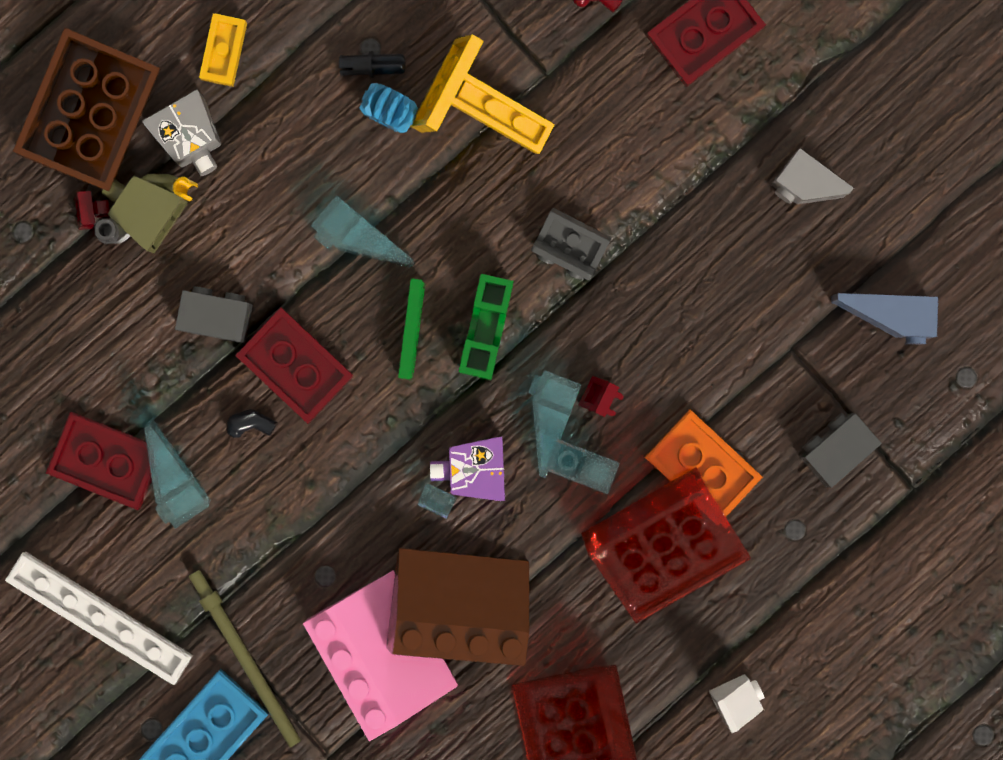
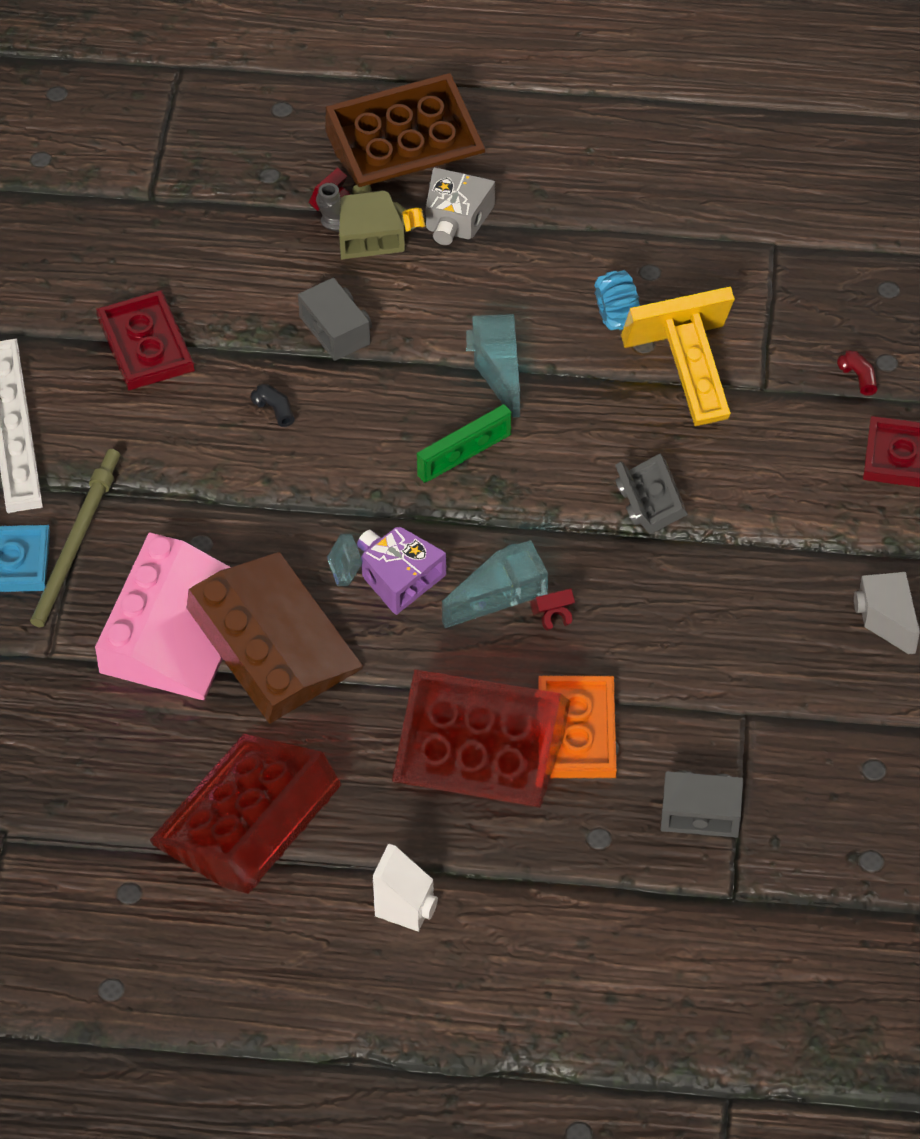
camera: 45 degrees right, 35 degrees down
(174, 486) = (175, 377): clear light blue slope -> none
(223, 50) = (542, 184): yellow plate -> none
(294, 365) = (352, 395): dark red plate -> none
(372, 64) = (641, 275): black axle -> none
(486, 327) = (546, 474): green arch -> none
(582, 466) = (482, 629): clear light blue slope -> none
(895, 314) = (862, 757): sand blue slope -> none

